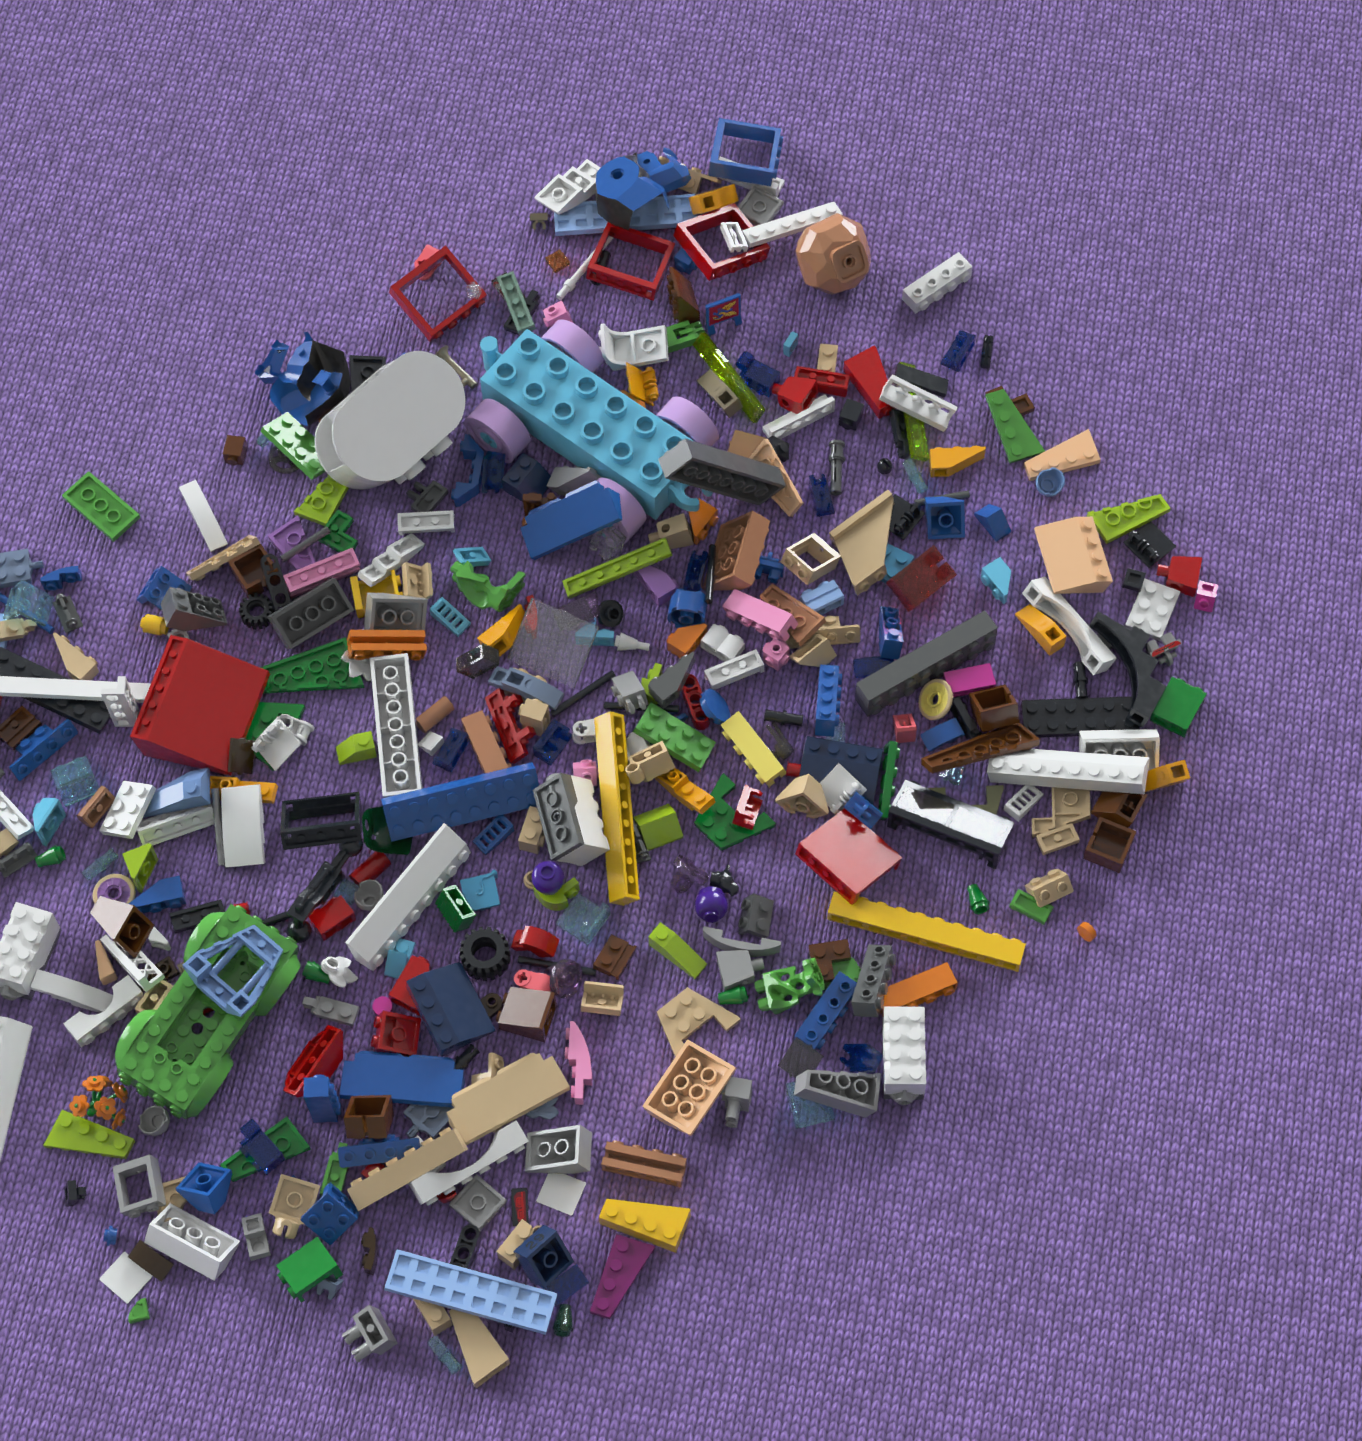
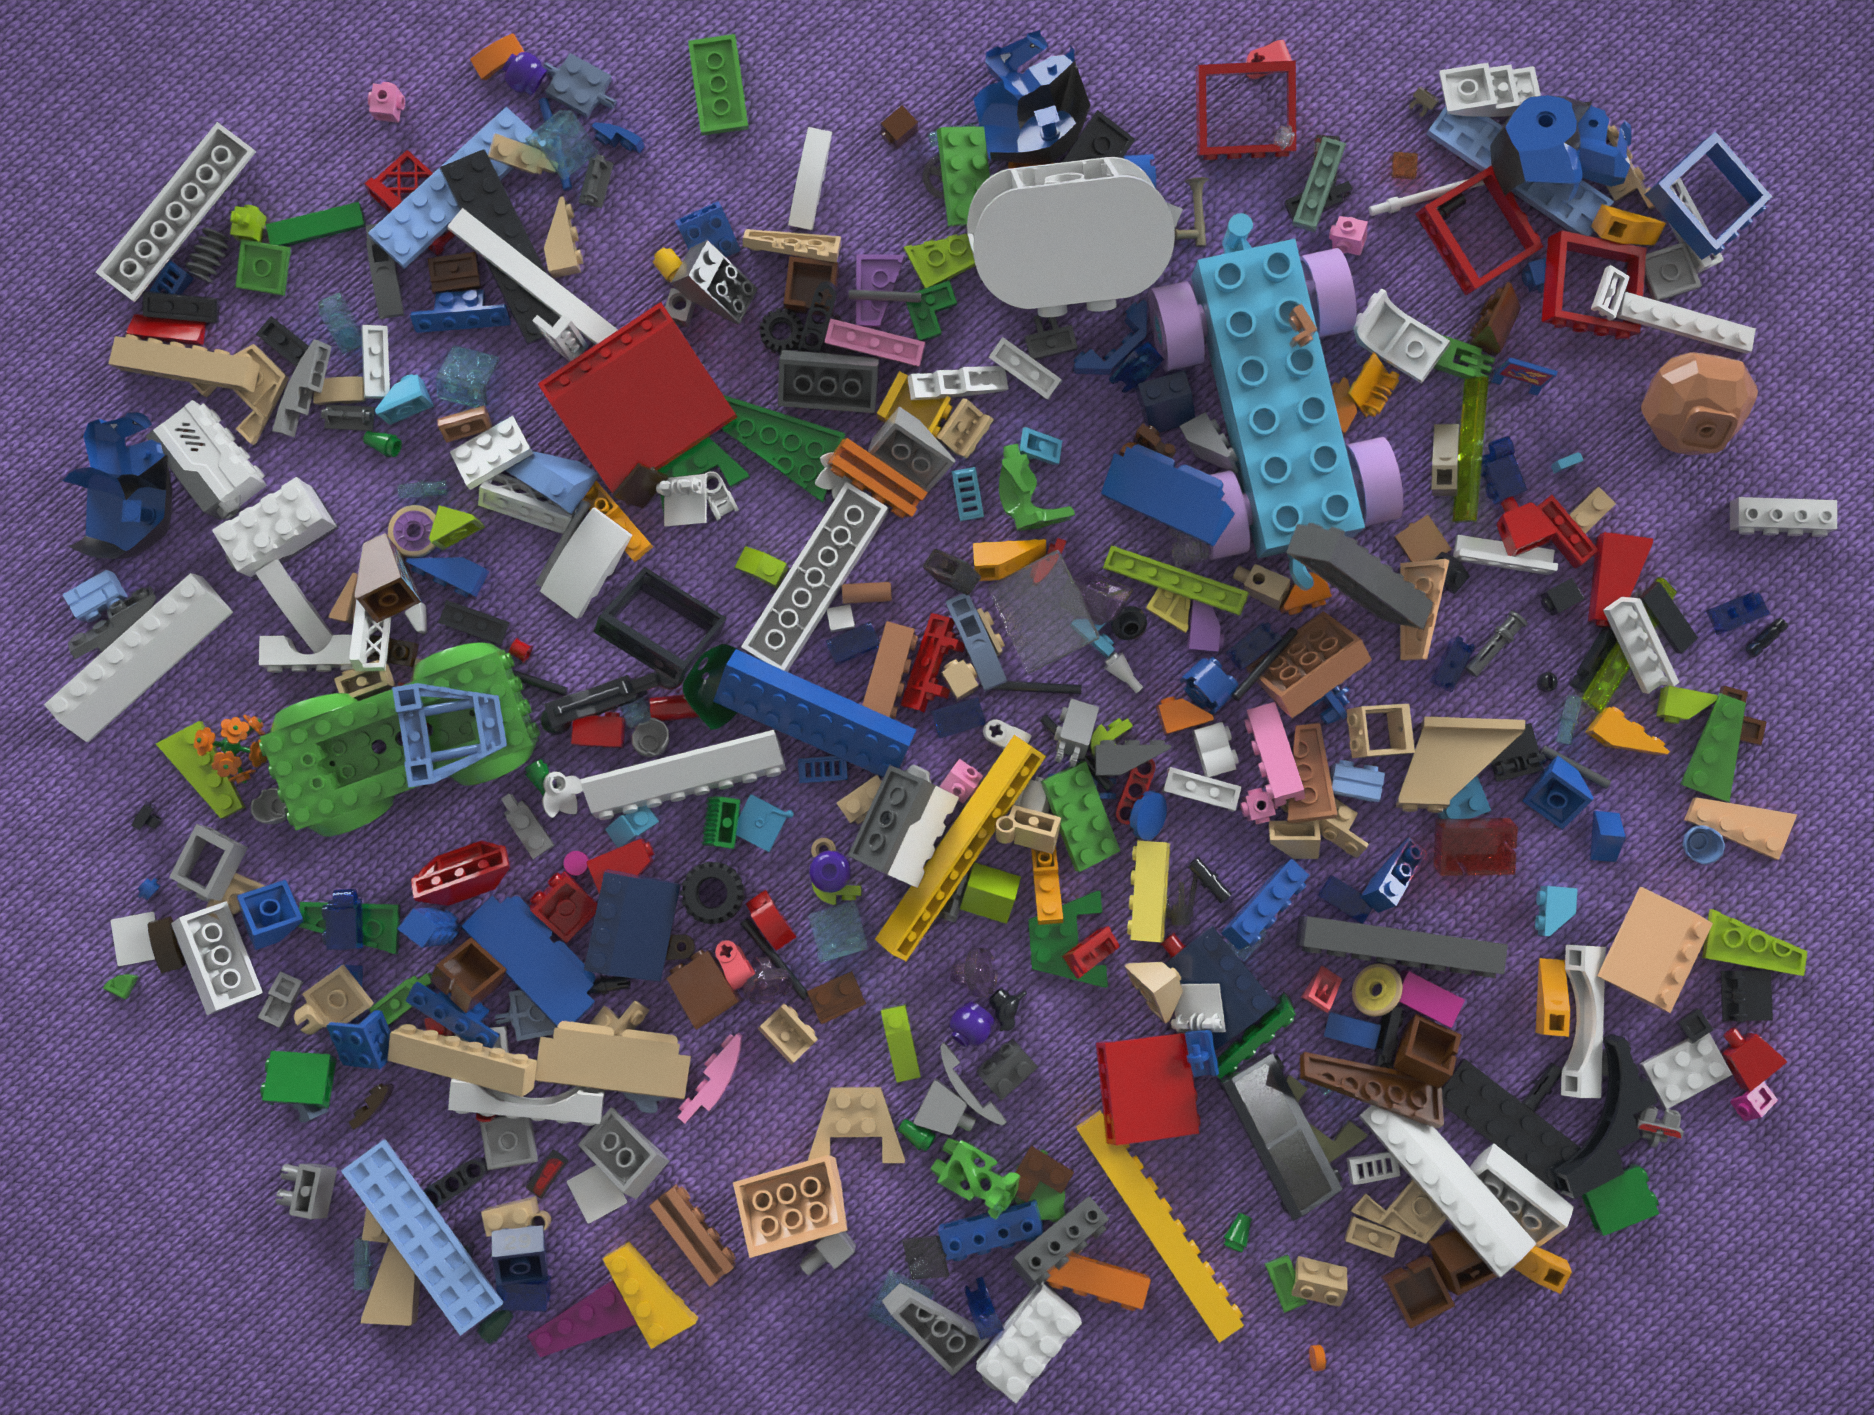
camera: 40 degrees right, 20 degrees up
(570, 363) = (1301, 322): none -> nougat bracket
(628, 588) = (1170, 608): none -> light yellow wing
(969, 419) = (1681, 704): none -> lime slope

